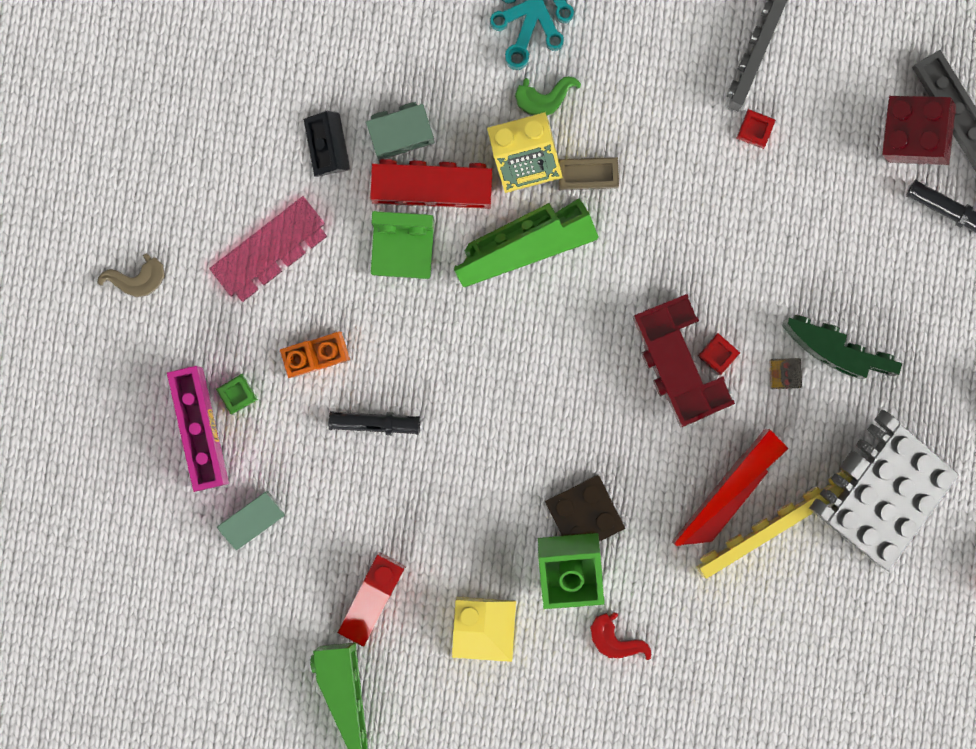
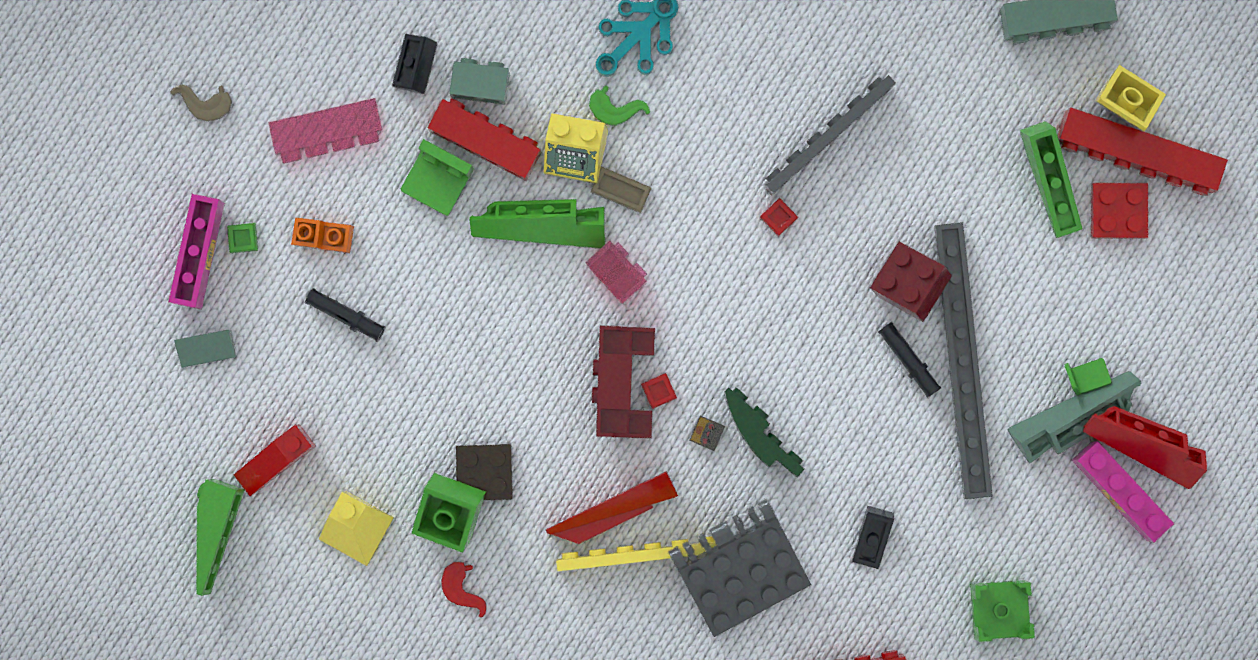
camera: 25 degrees right, 0 degrees up
(623, 255) = (616, 271): none -> clear pink brick

